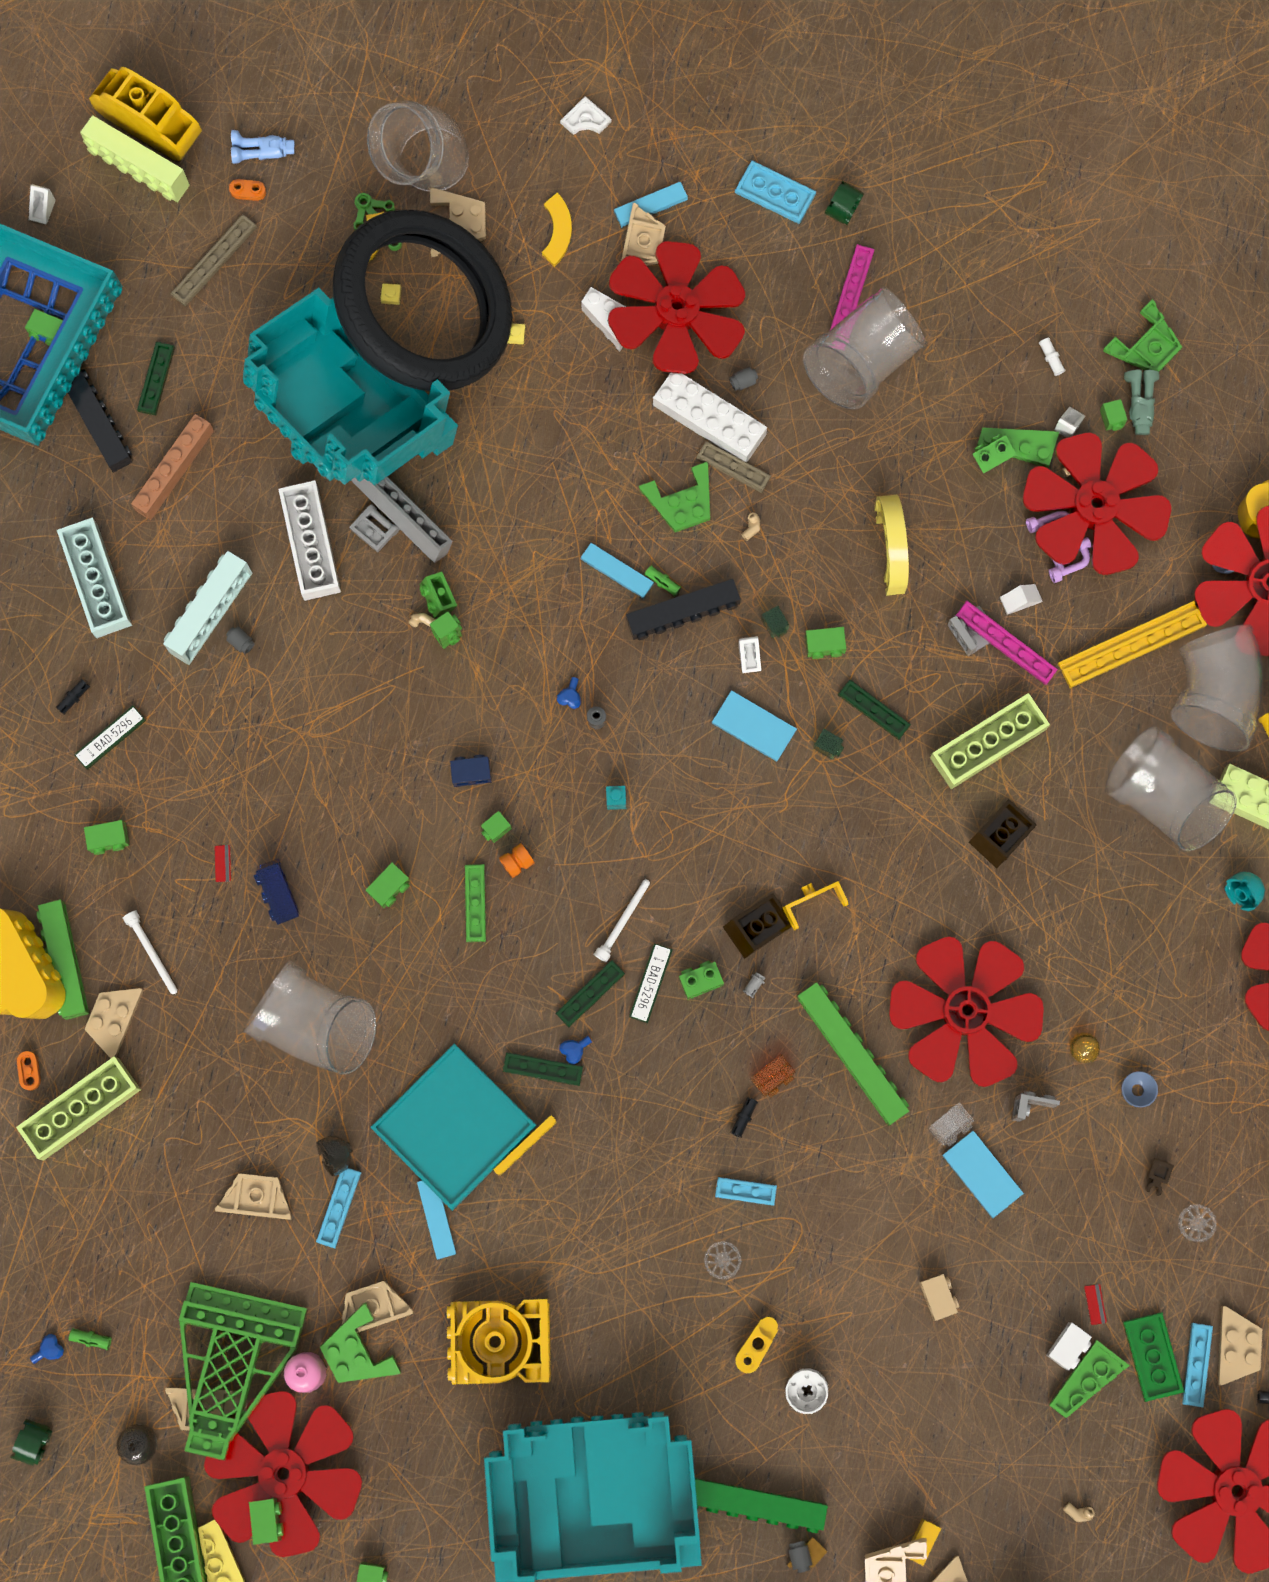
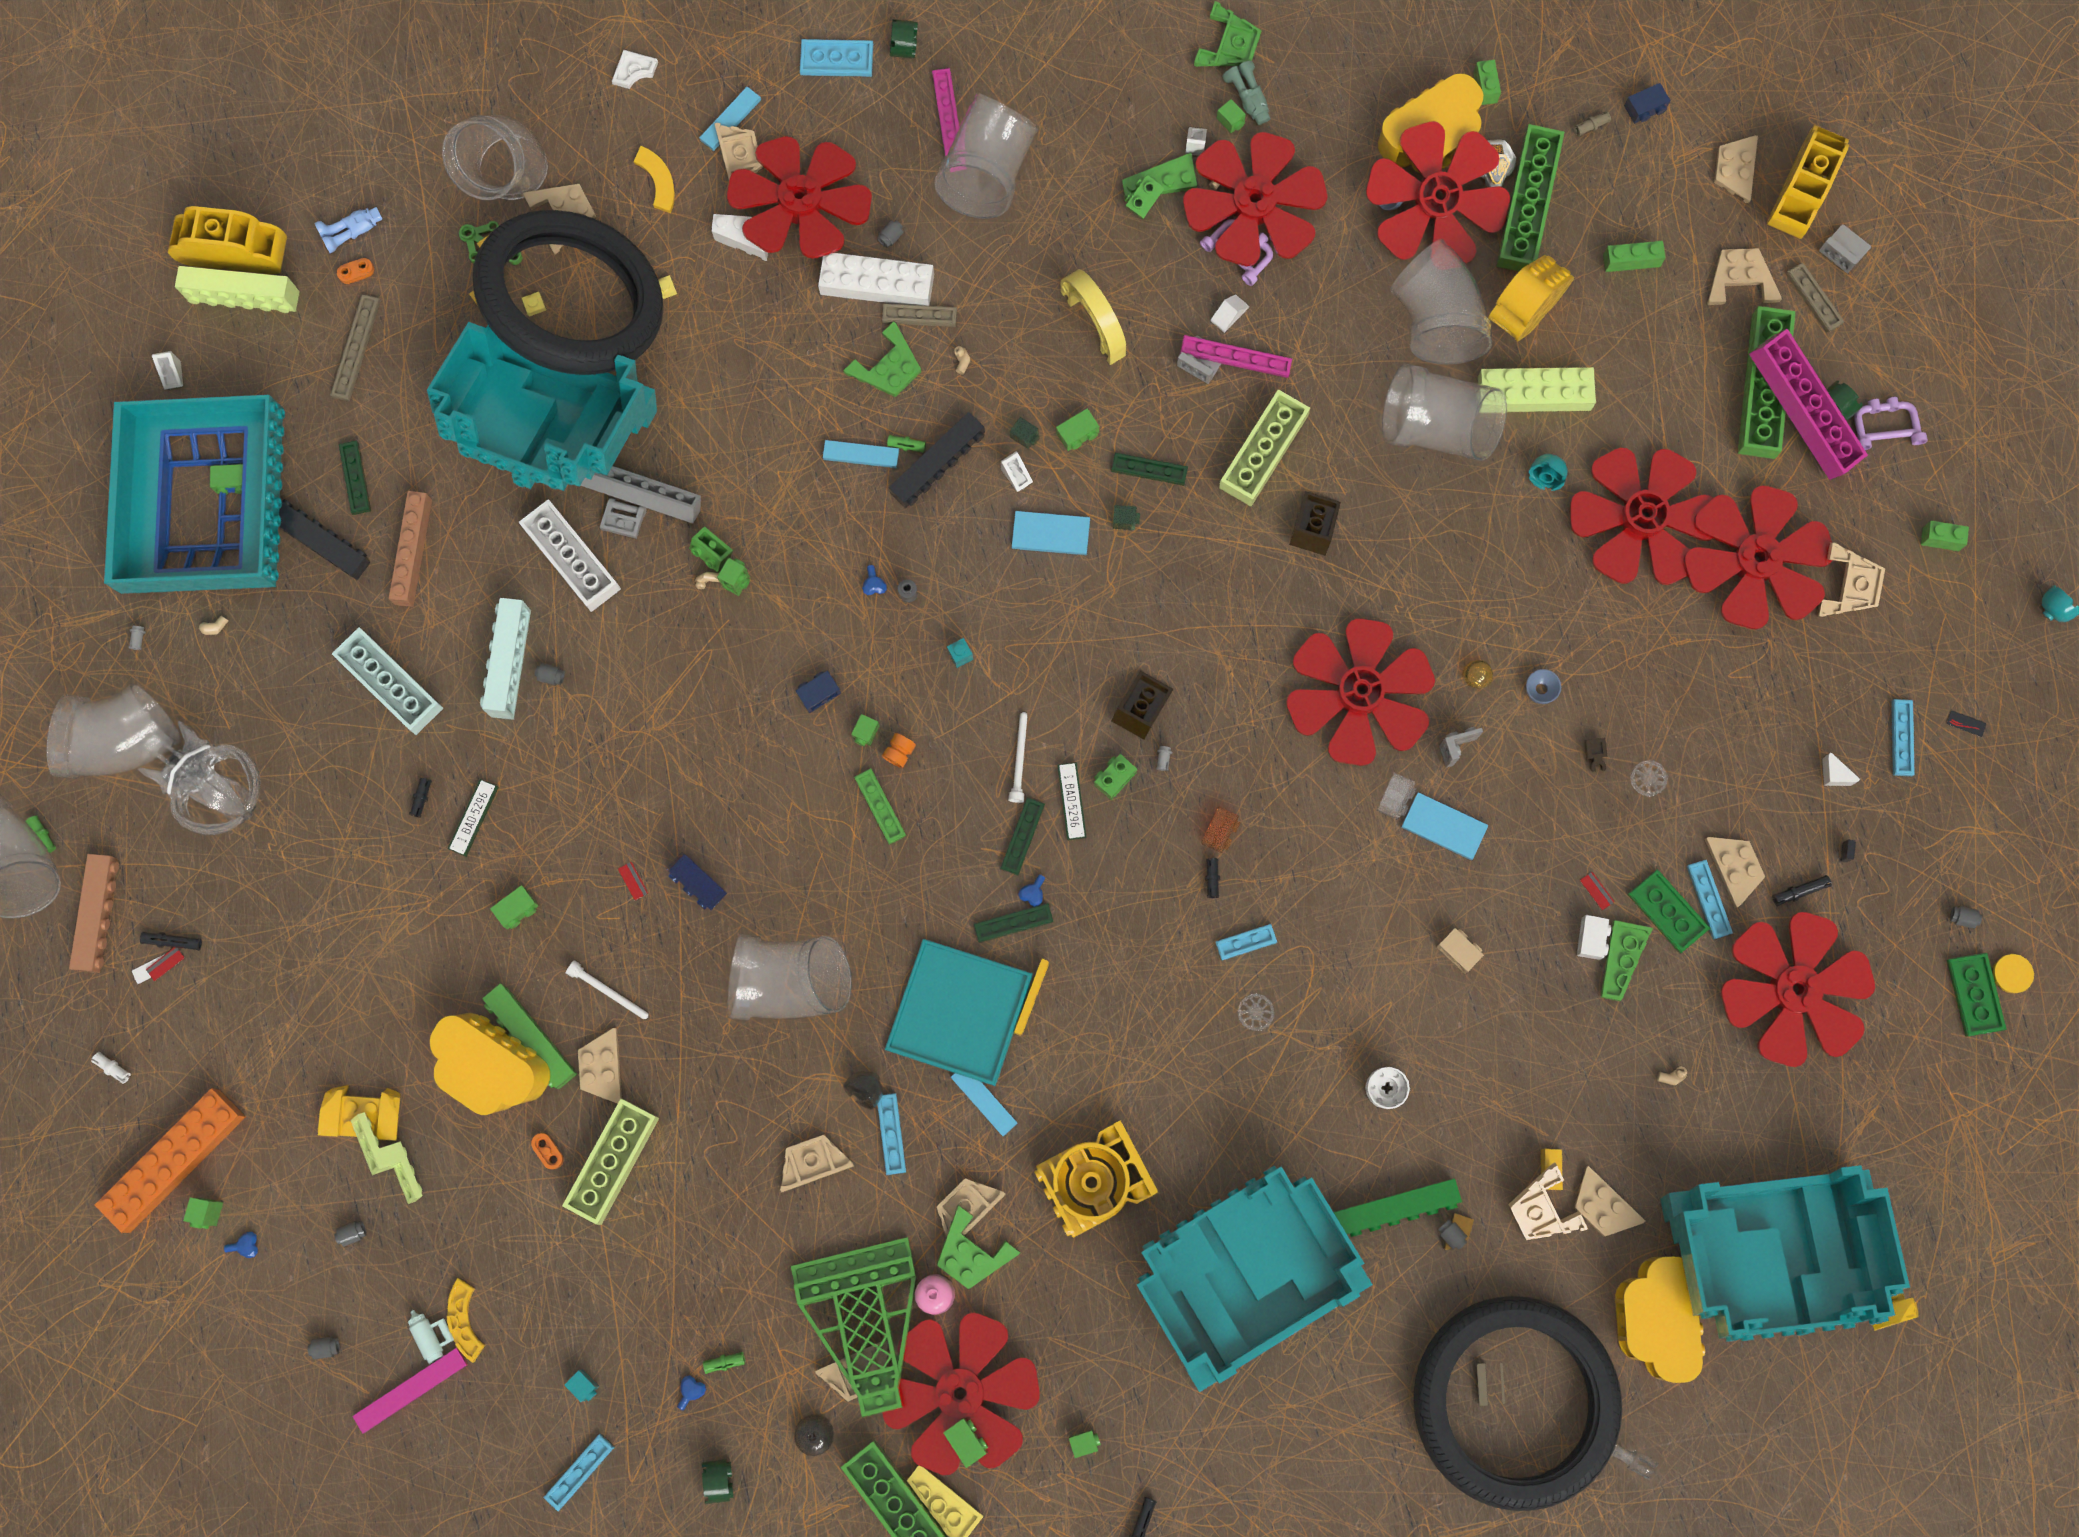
camera: 25 degrees left, 0 degrees up
(388, 886) = (794, 828): bright green brick -> none
(766, 1330) = (1323, 1054): yellow piece -> none
(809, 892) = (1172, 654): yellow piece -> none
(852, 1053) = (1280, 776): bright green brick -> none
(1052, 356) = (1152, 90): white pin -> none
(1132, 644) = (1345, 307): yellow plate -> none

